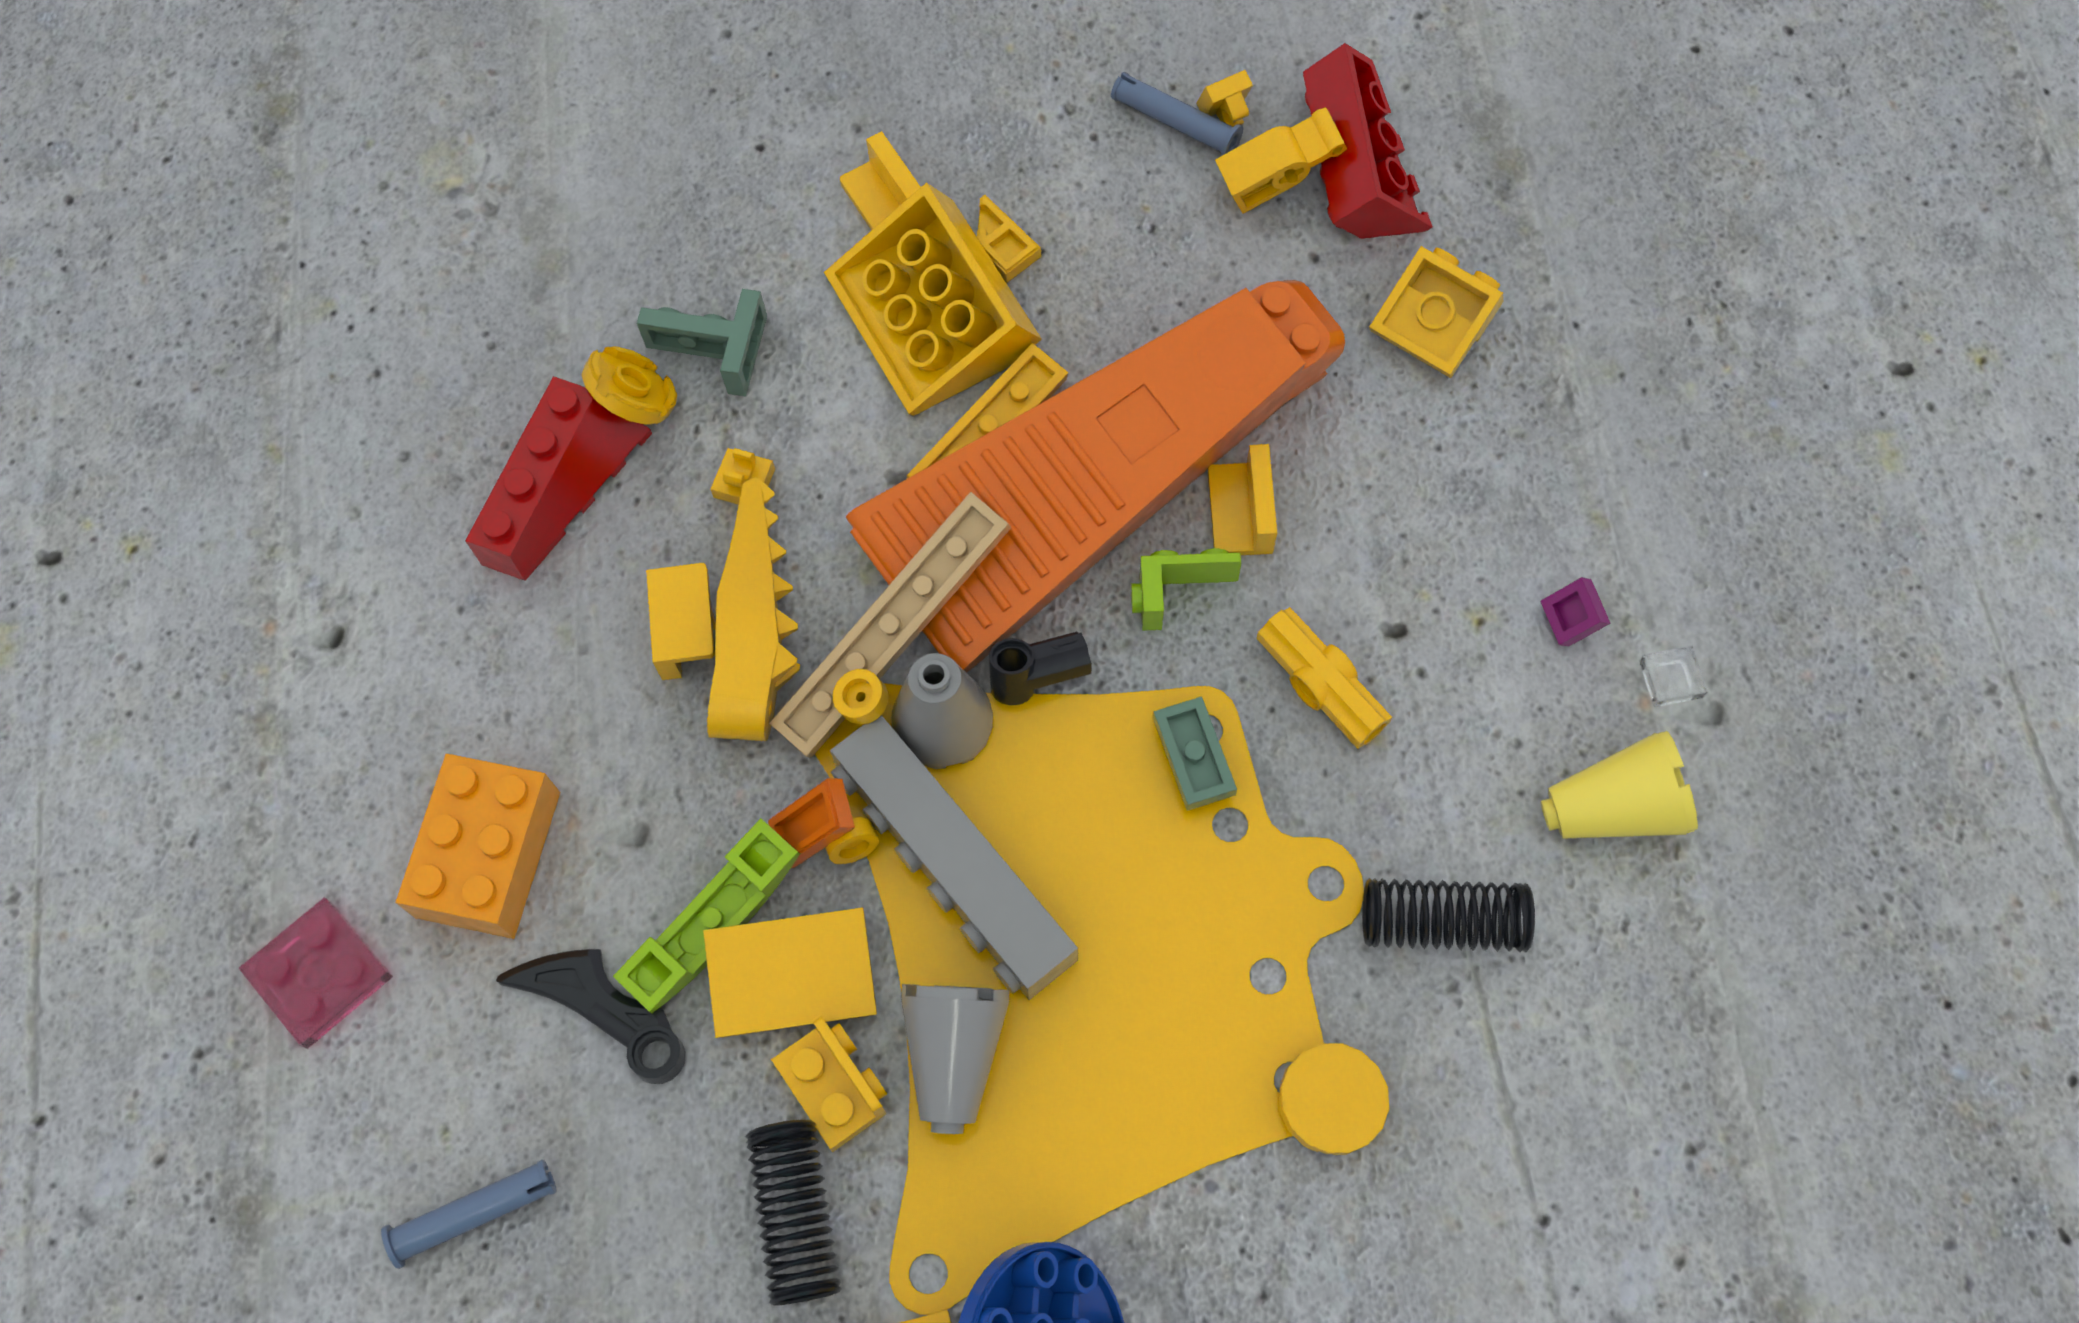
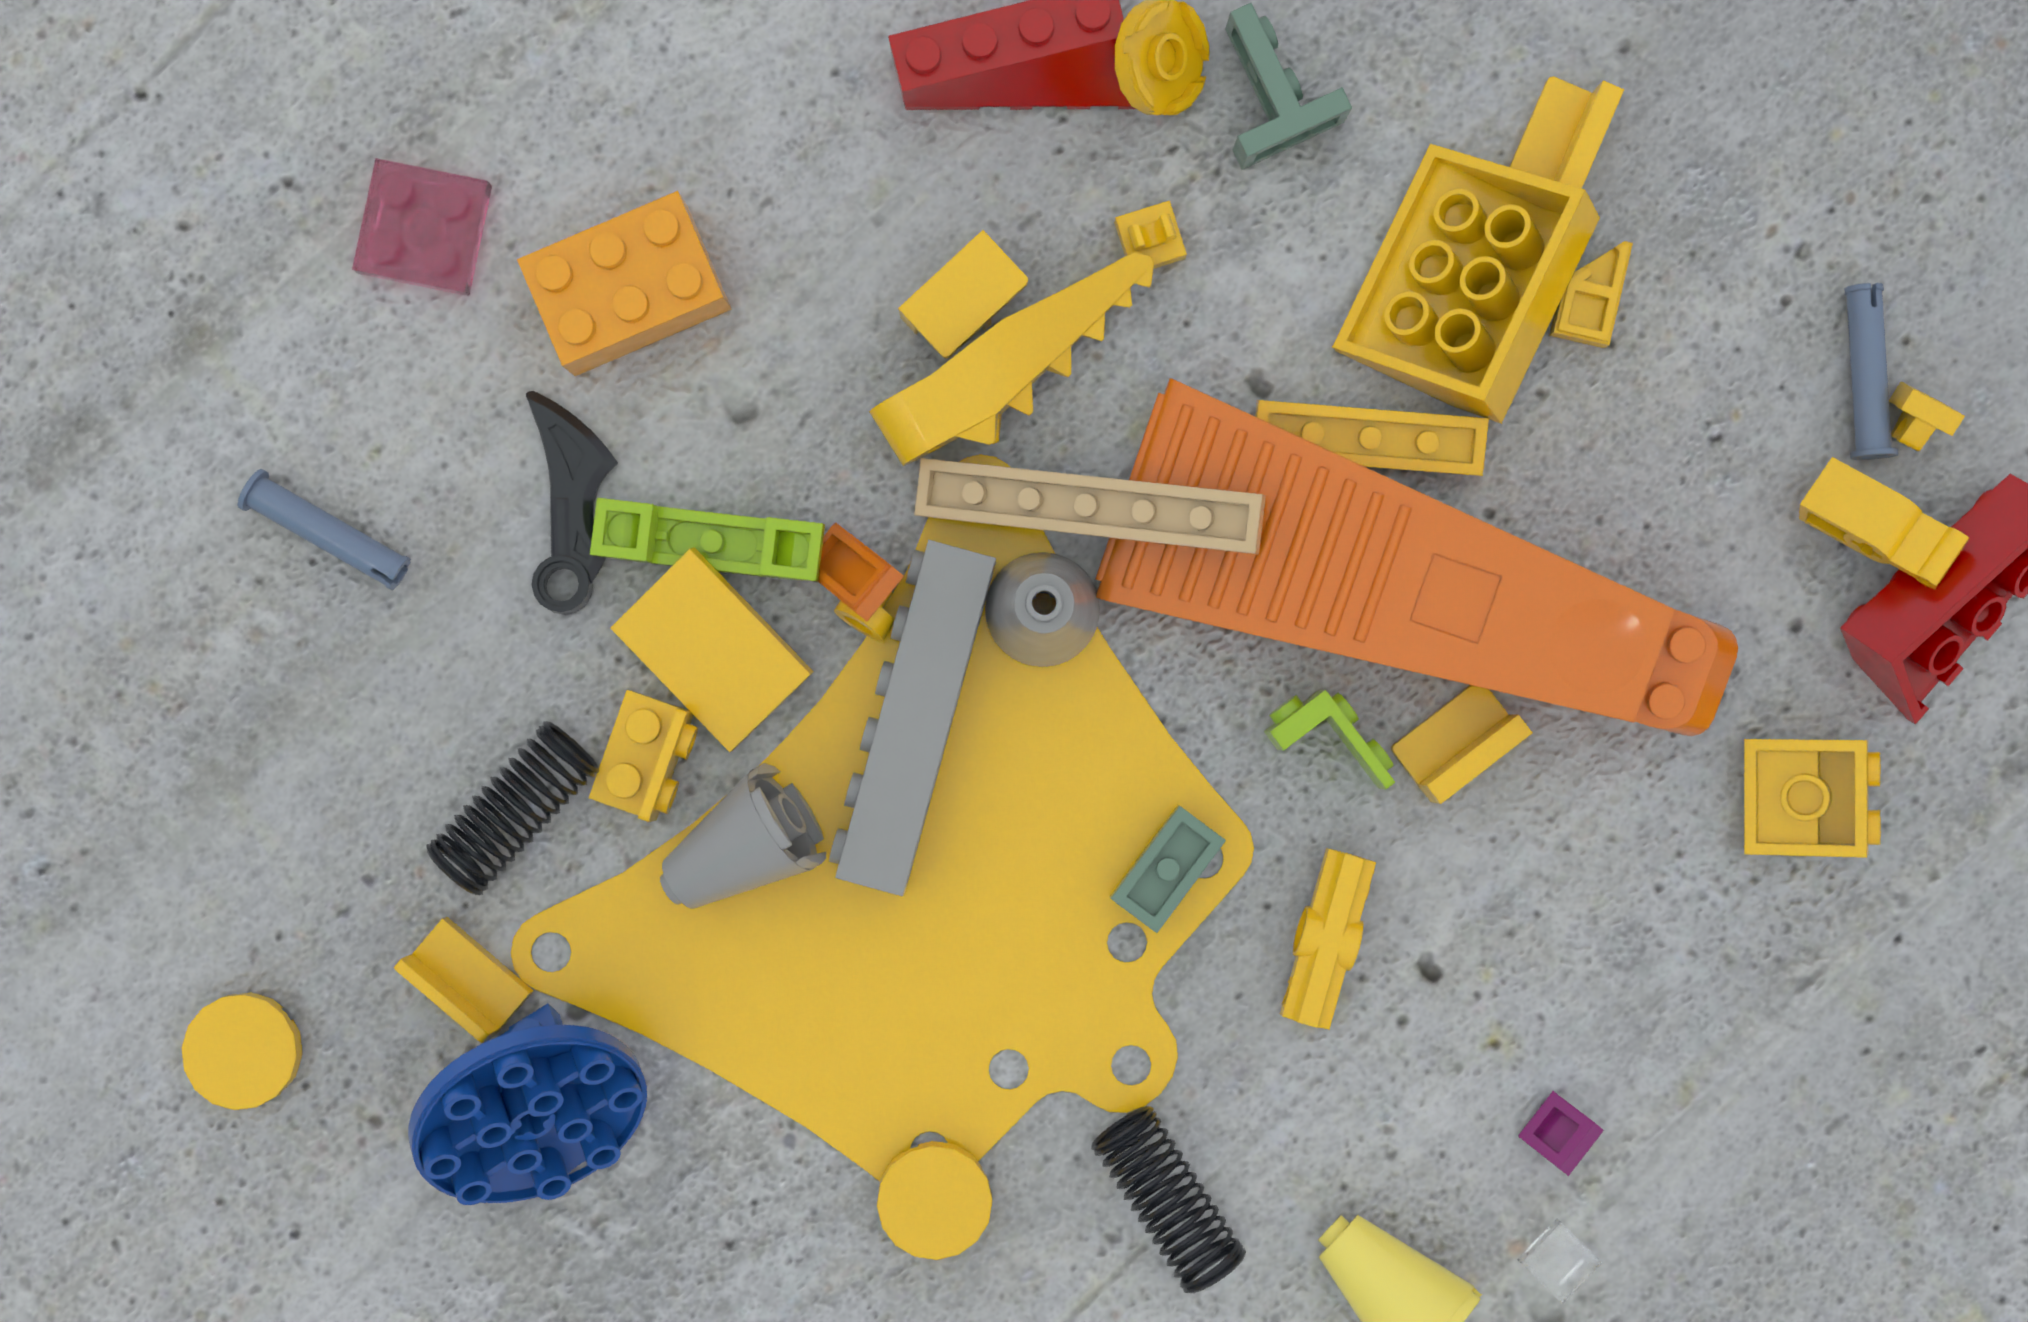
camera: 50 degrees right, 20 degrees up
(860, 696) = (994, 520): yellow tile -> none
(1023, 667) = (1158, 667): black piece -> none

